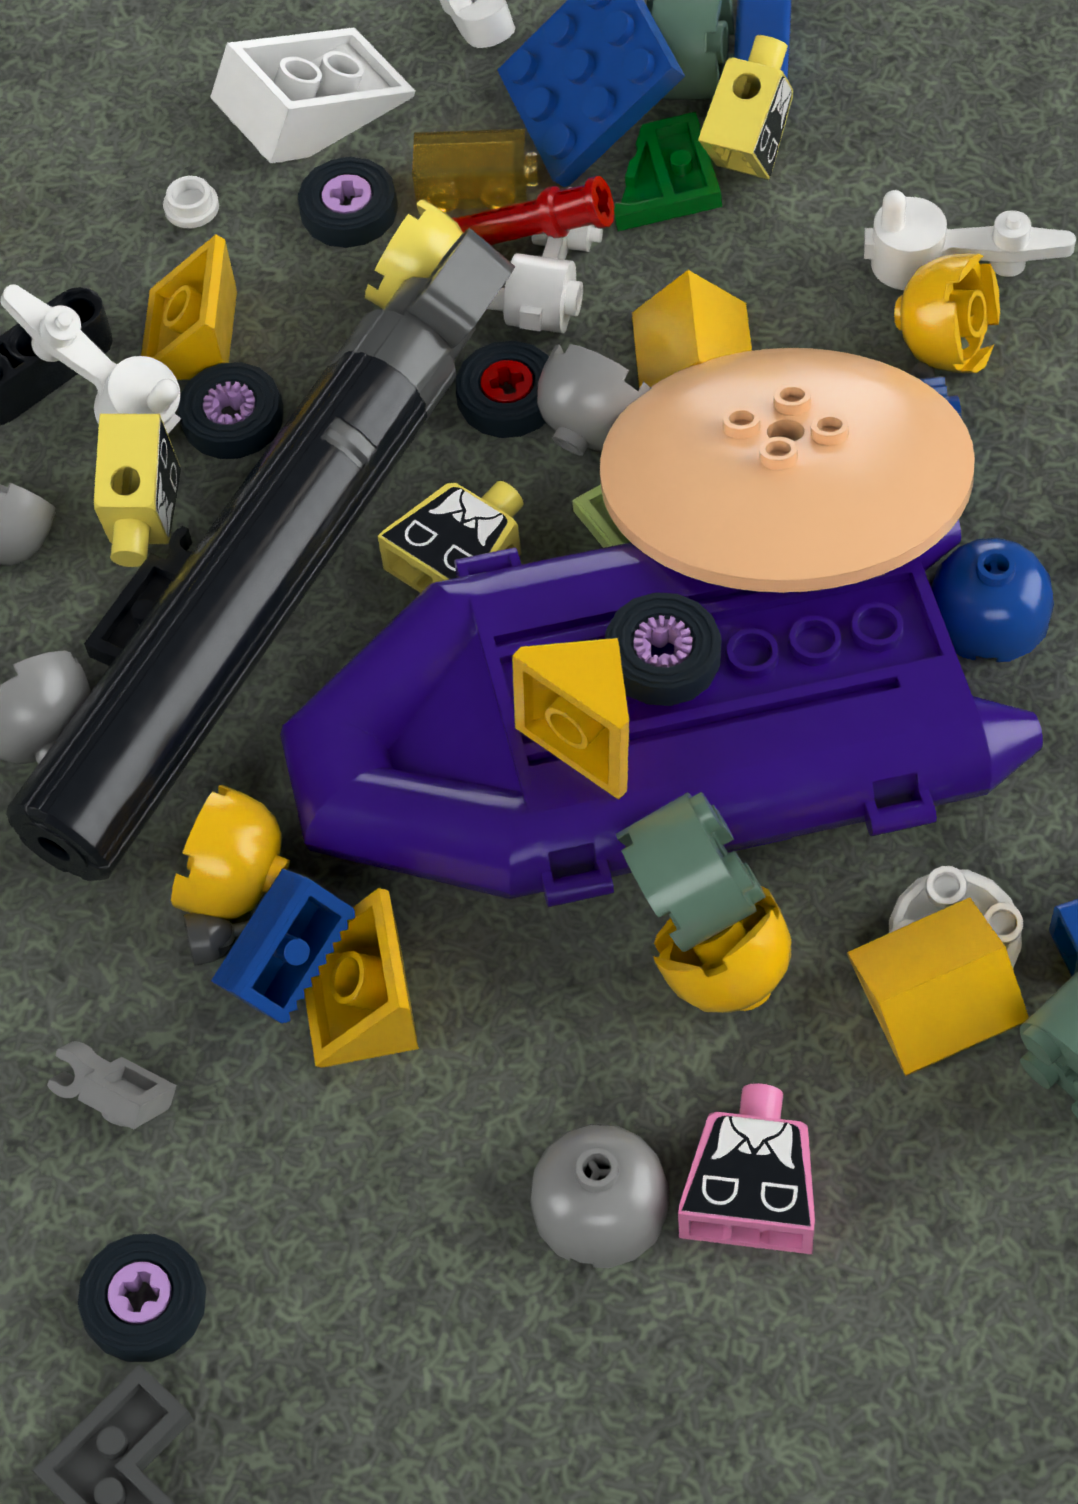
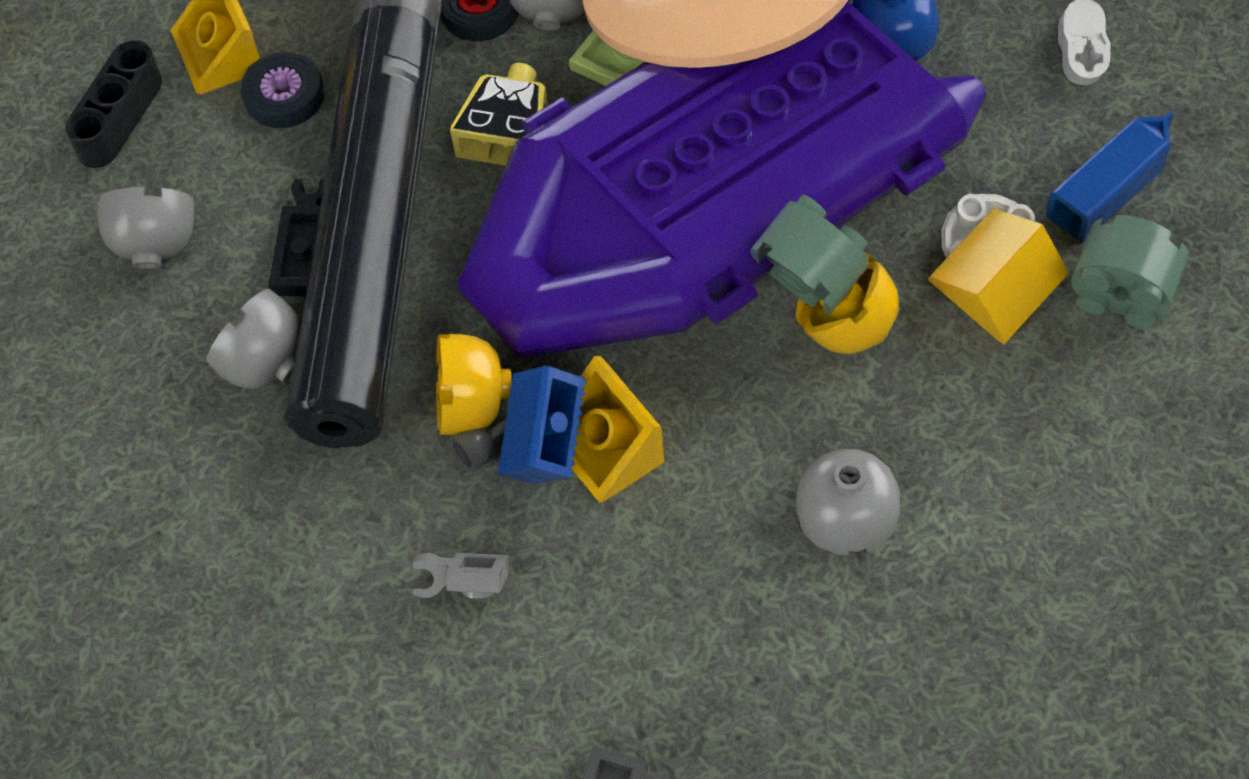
camera: 25 degrees left, 0 degrees up
(128, 387) = (207, 105): white piece -> none
(135, 484) = (250, 169): light yellow torso -> none
(160, 1325) = (590, 715): black bush -> none
(576, 707) = (689, 173): yellow slope -> none
(659, 621) = (708, 98): black bush -> none
(751, 1178) = (948, 446): torso -> none

